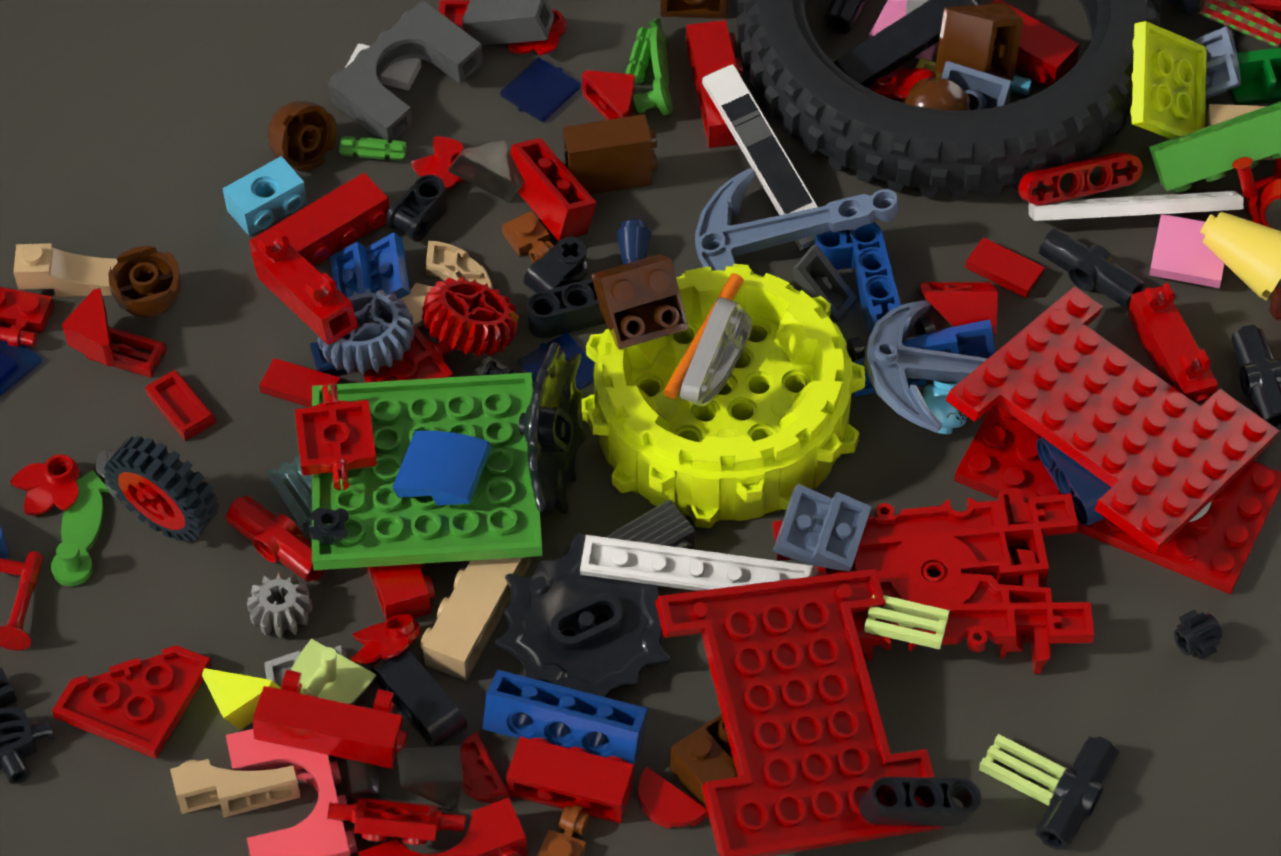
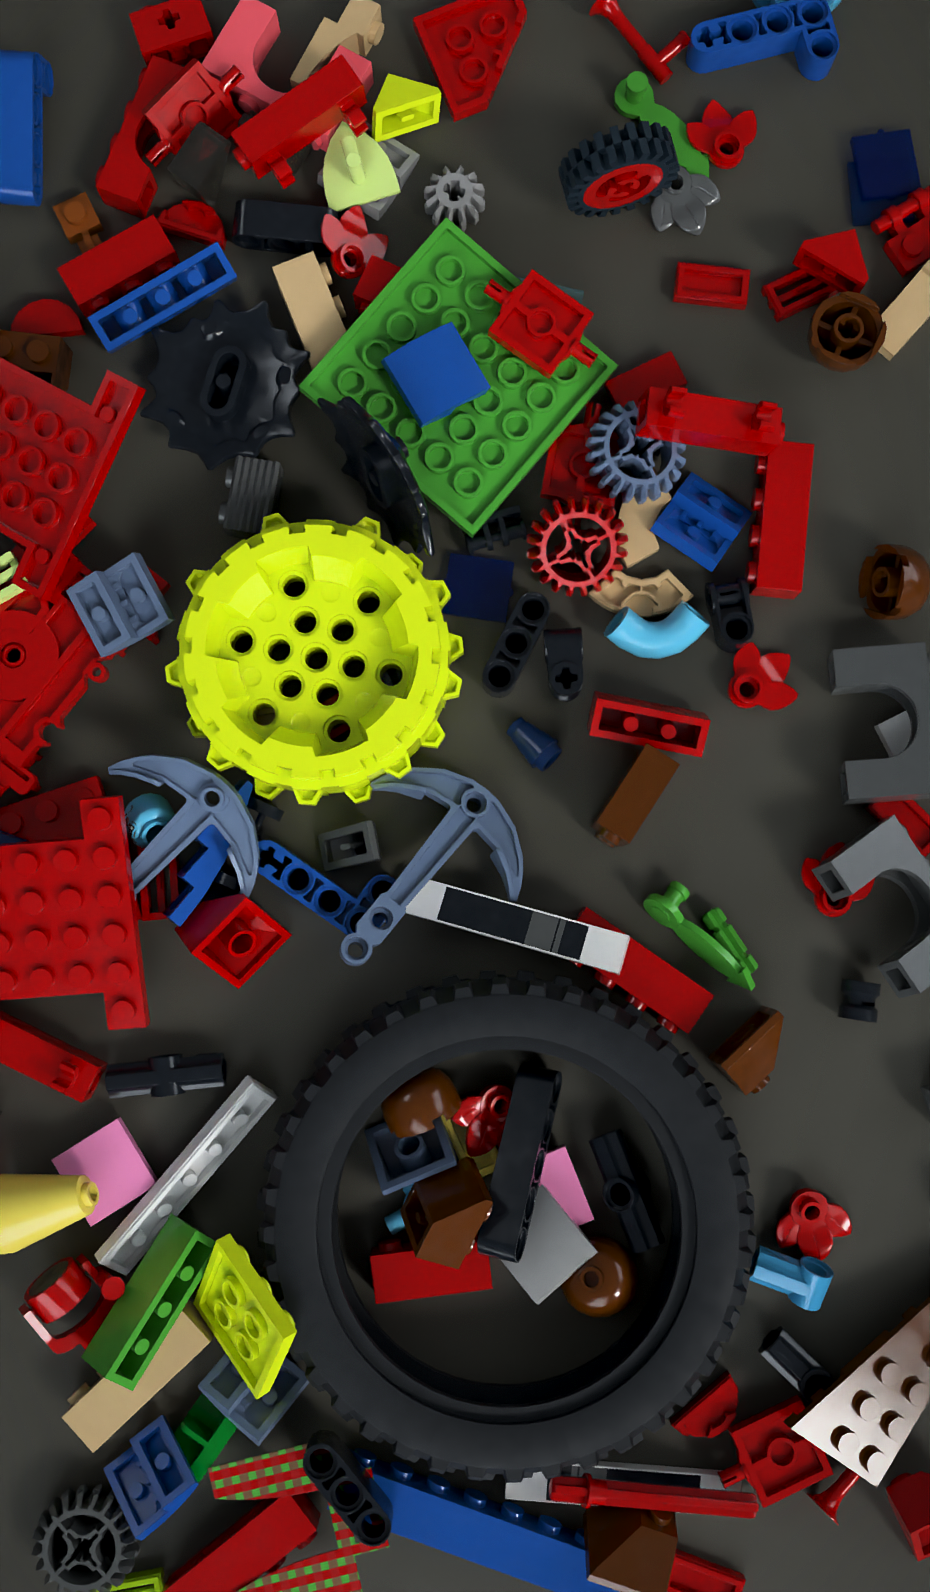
camera: 135 degrees right, 30 degrees up
(265, 196) = (867, 488): medium azure brick -> none
(273, 536) = (519, 245): red piece -> none
(326, 532) = (457, 258): black plate -> none
(373, 148) = (832, 637): bright green axle -> none
(479, 232) = (656, 638): none -> medium azure cylinder
(489, 168) = (716, 696): clear smoke slope -> none
(527, 236) = (629, 678): dark orange plate -> none
(540, 89) = (773, 830): clear blue piece -> none
(609, 93) = (699, 871): red slope -> none
(640, 300) = (422, 630): reddish brown slope -> none
(675, 383) = (350, 660): orange bar -> none
(680, 566) = (179, 486): white tile -> none
(716, 352) = (314, 643): light grey beam -> none
(1004, 267) = (238, 1012): red tile -> none
(1080, 175) = (248, 1154): red beam -> none

